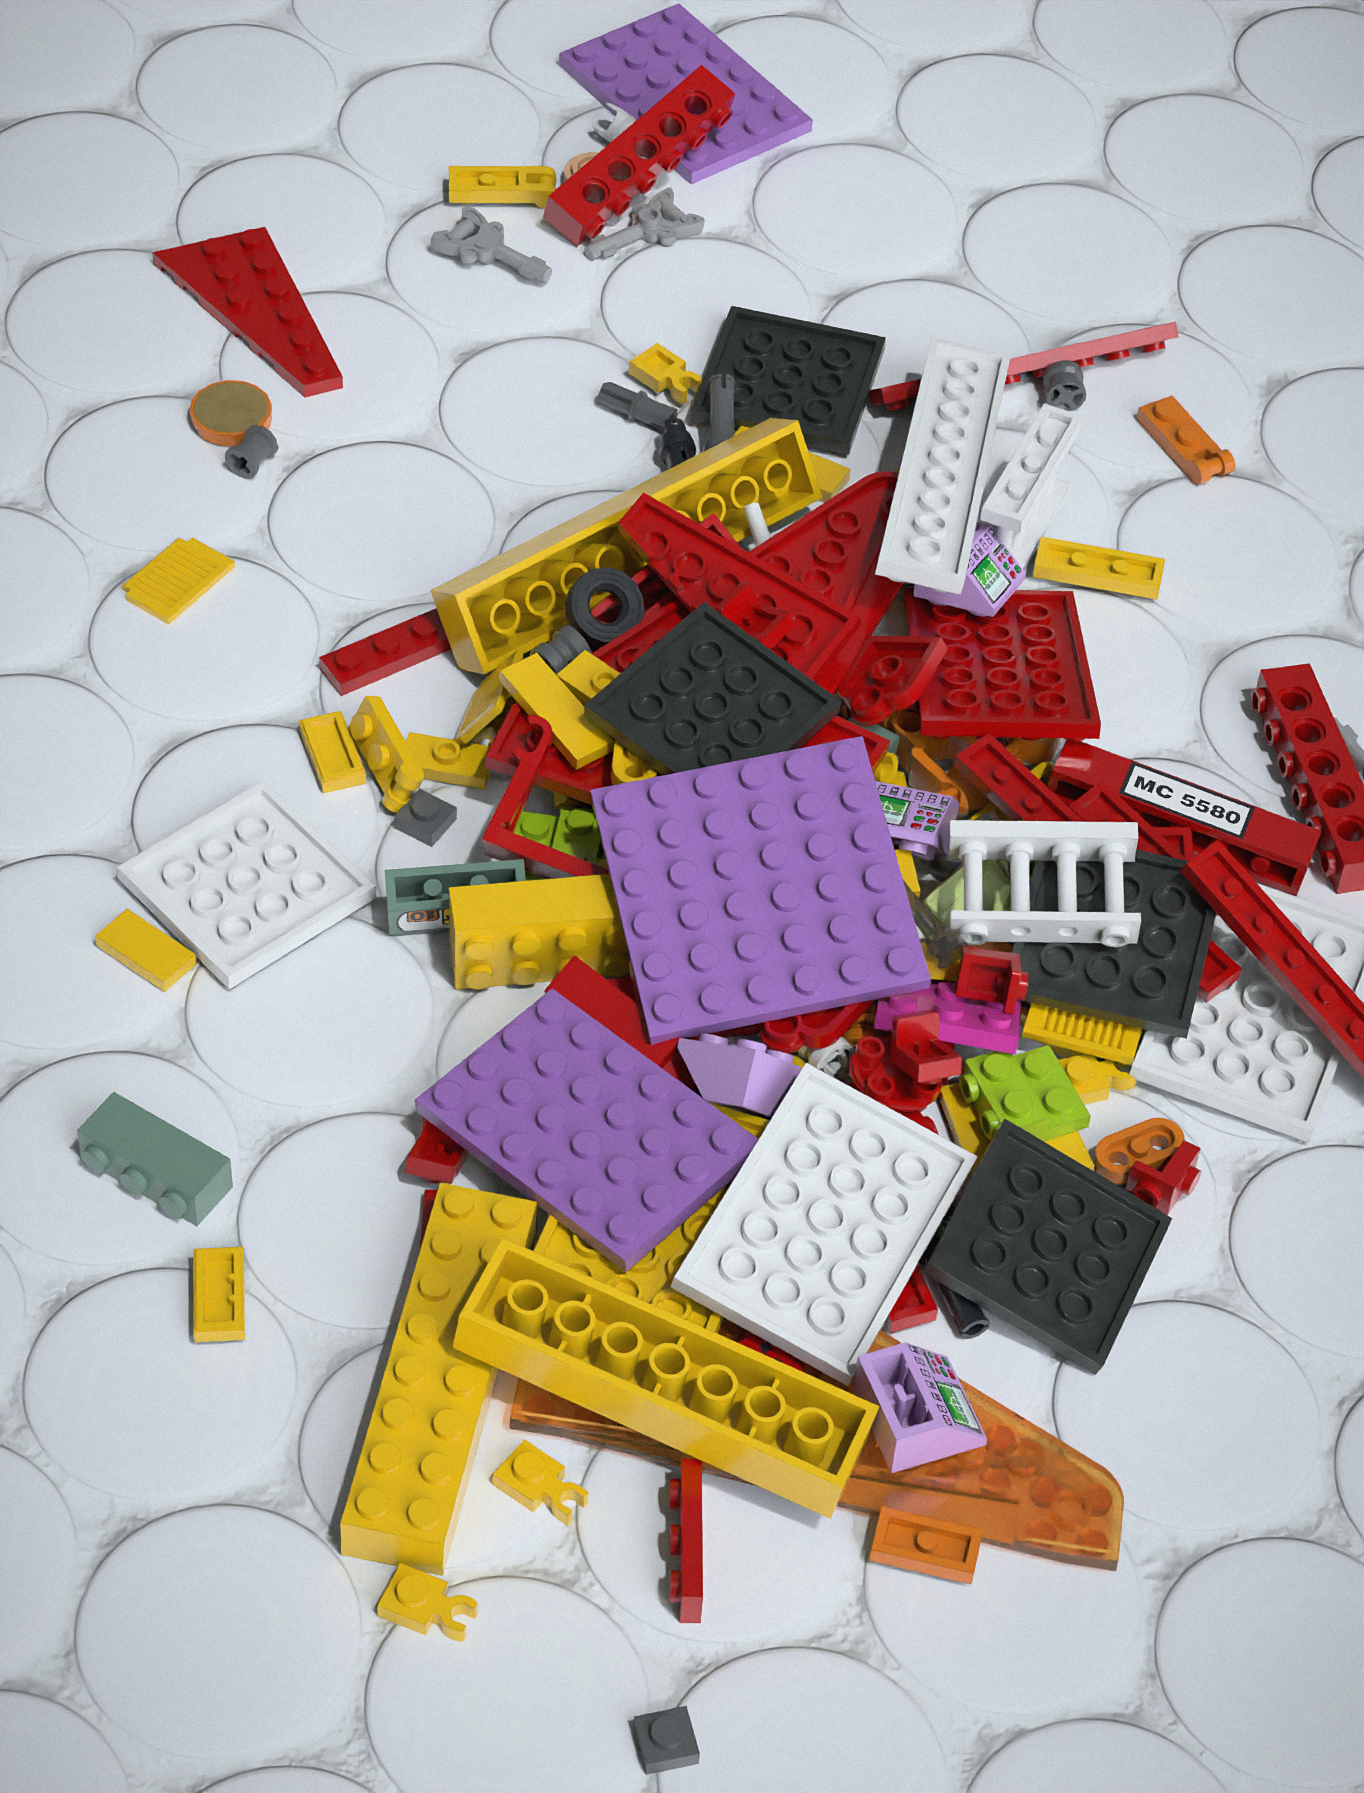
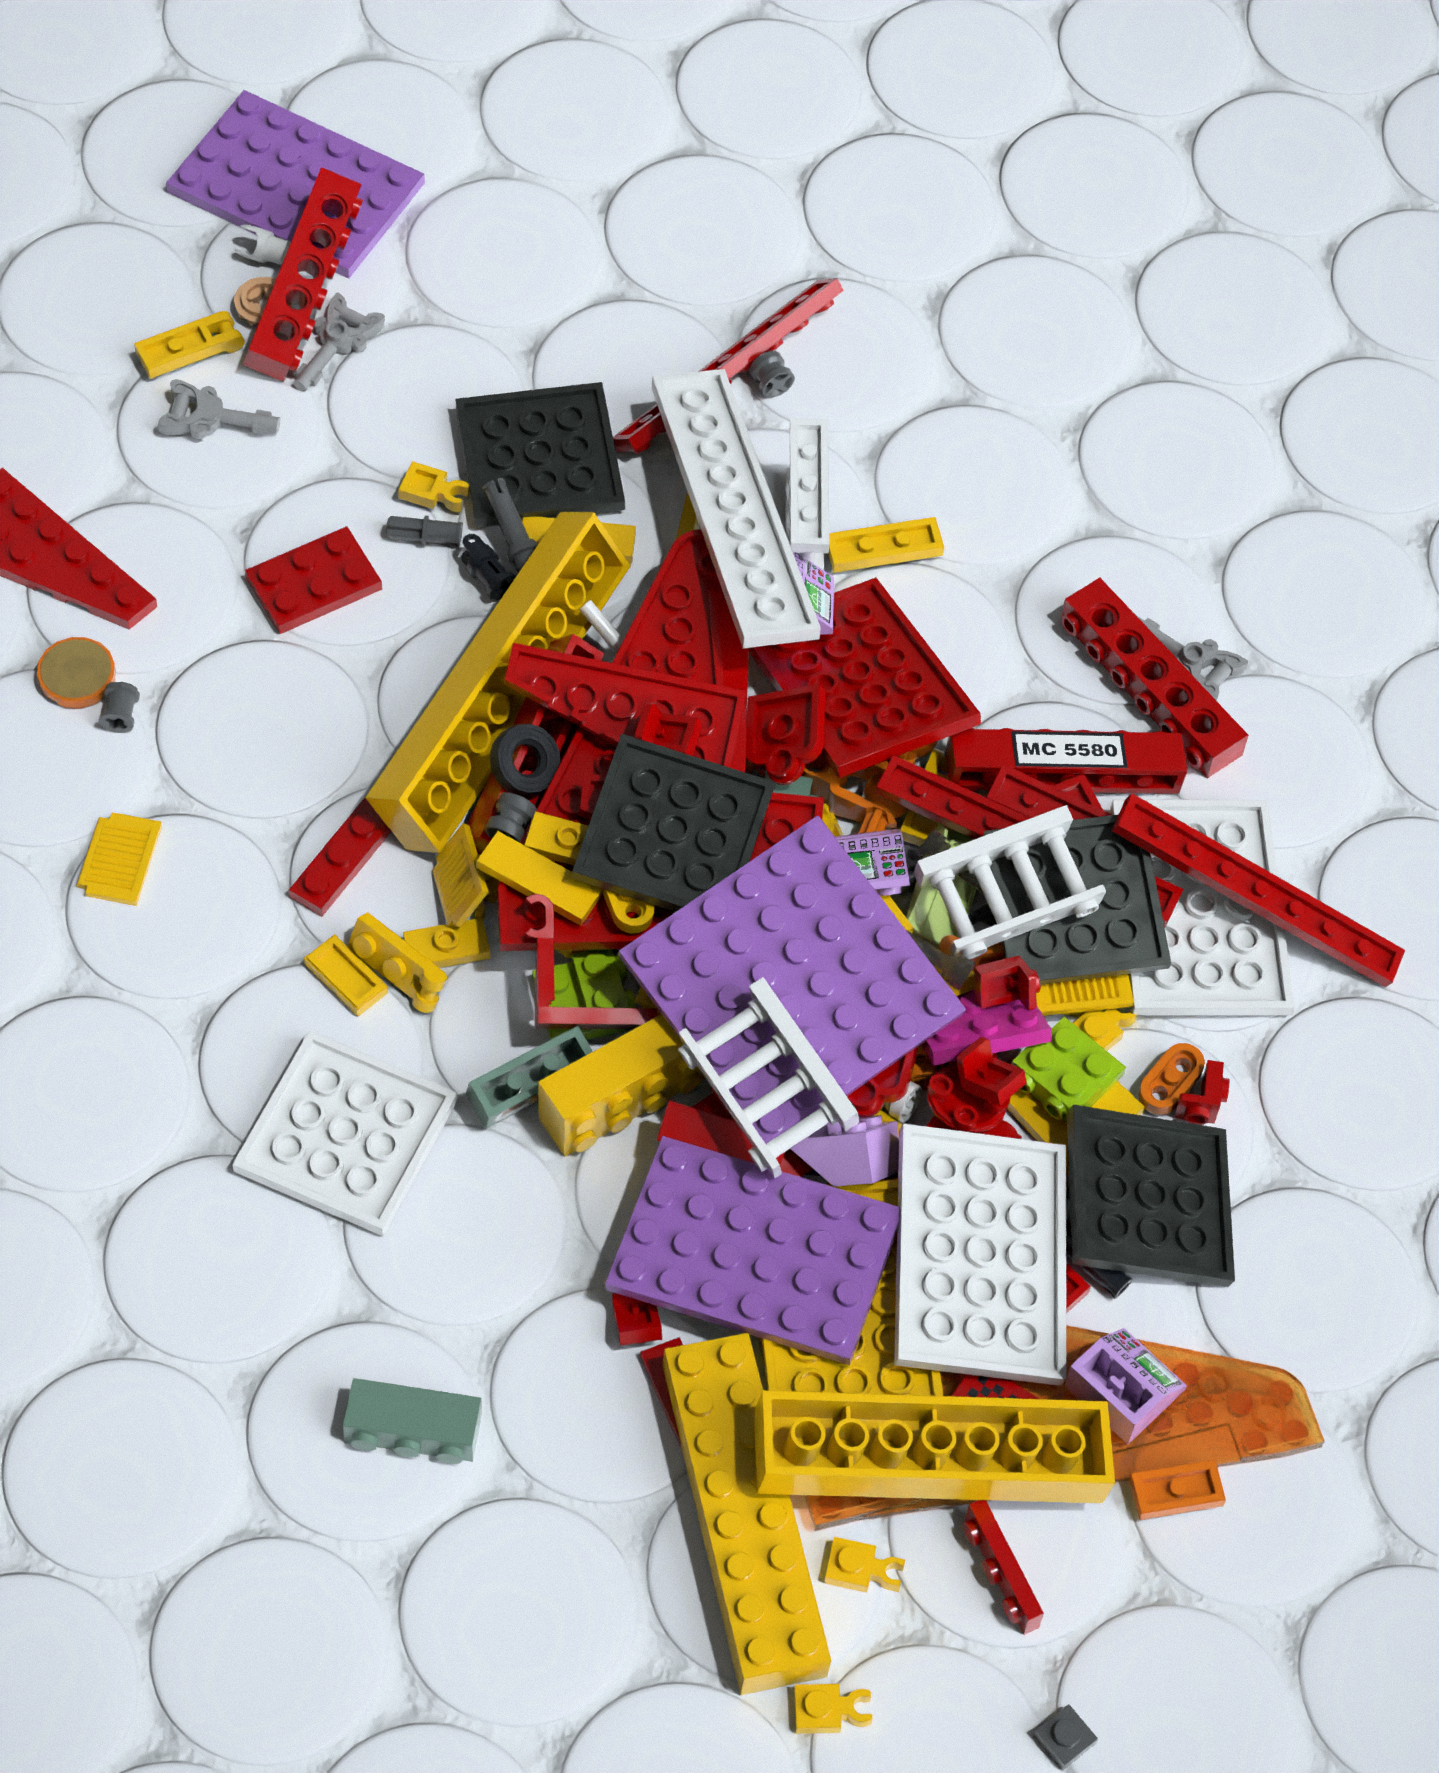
camera: 25 degrees left, 10 degrees up
(145, 950) = (294, 1229): yellow tile -> none
(219, 1294) = (528, 1516): yellow plate -> none
(425, 817) = (457, 1007): dark grey plate -> none
(504, 412) = (313, 580): none -> red plate
(721, 970) = (785, 1041): none -> white fence
(1185, 440) = (892, 389): orange plate -> none

